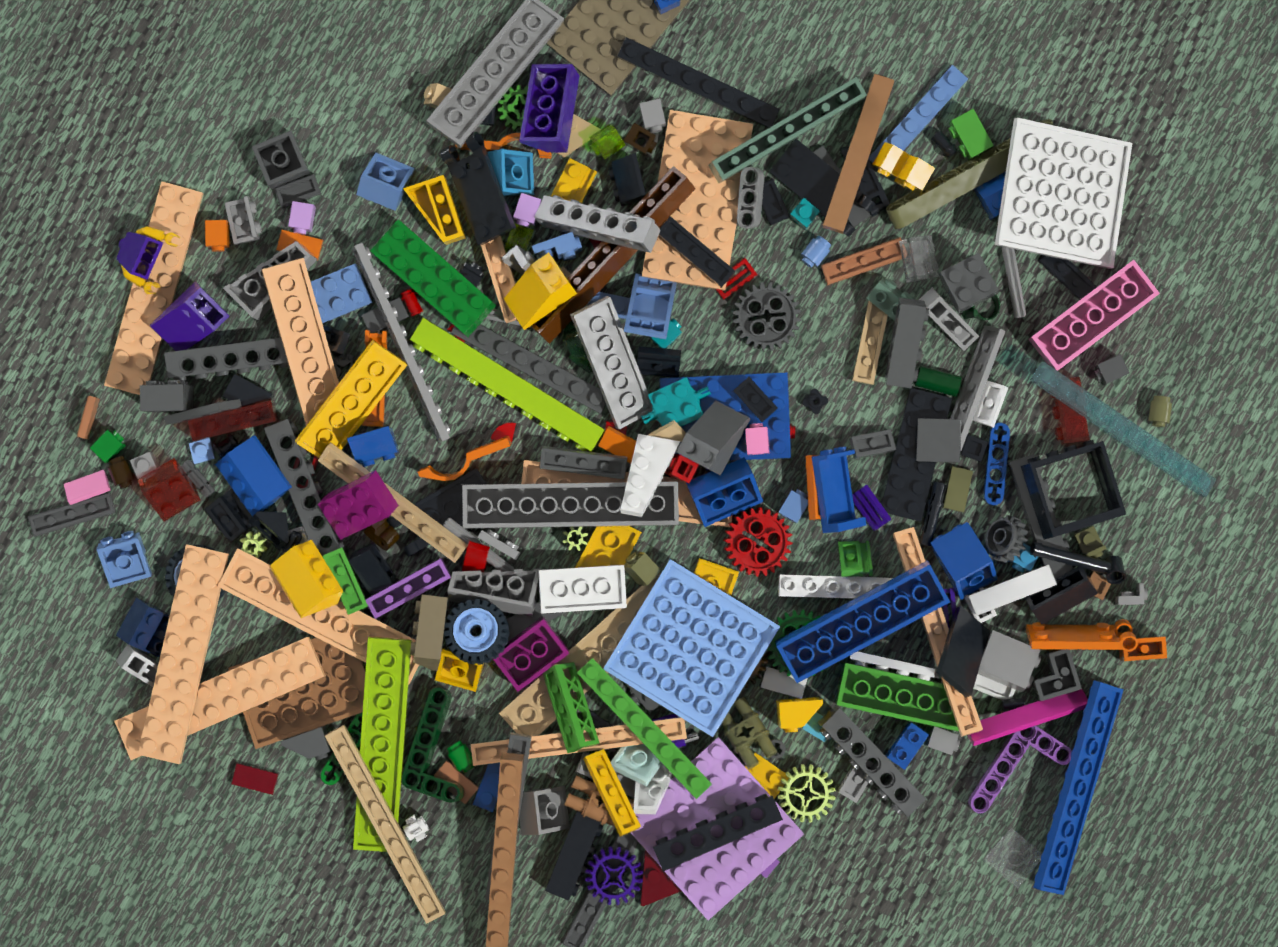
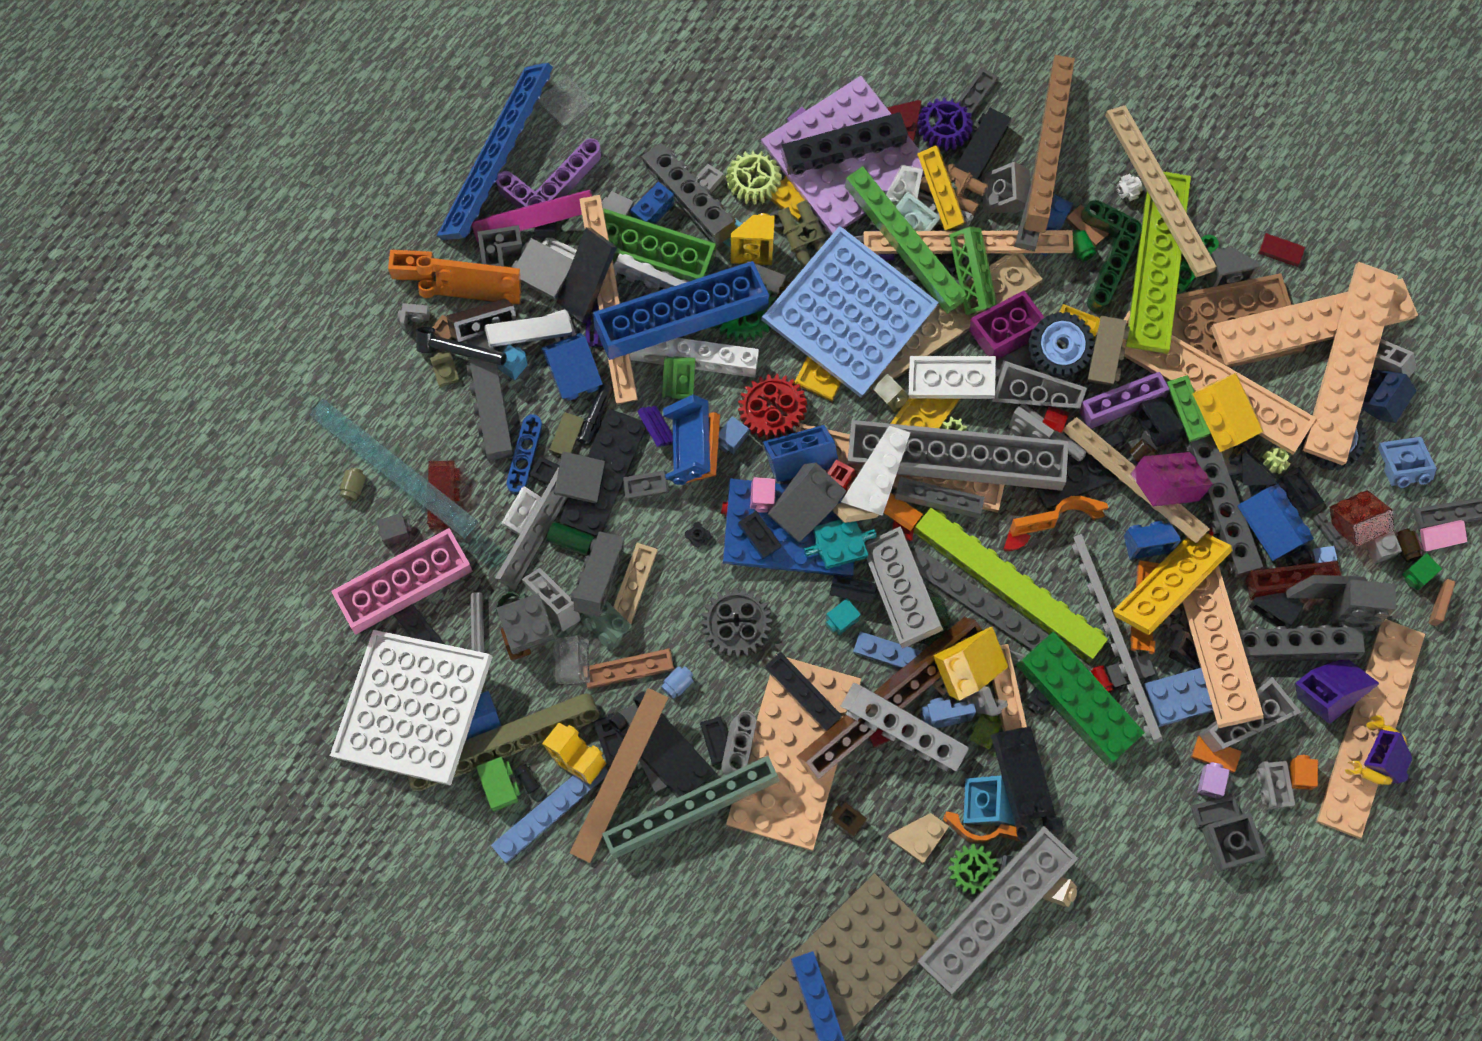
camera: 175 degrees left, 15 degrees down
(384, 181) = (1122, 809): medium blue slope -> none
(438, 208) = (1068, 771): yellow wedge -> none
(526, 210) = (974, 760): lavender brick -> none
(550, 107) = (942, 862): dark purple slope -> none
(574, 181) = (922, 784): yellow plate -> none
(606, 141) = (884, 821): clear neon green brick -> none
(627, 179) = (865, 777): black slope -> none
(650, 307) = (857, 638): medium blue slope -> none
(652, 115) = (832, 844): light grey brick -> none
(698, 83) = (780, 874): black plate -> none
(748, 268) = (749, 676): red tile -> none
(804, 214) = (684, 720): teal brick -> none
(1006, 538) = (527, 378): dark grey gear -> none
(1106, 479) = (443, 384): black window -> none

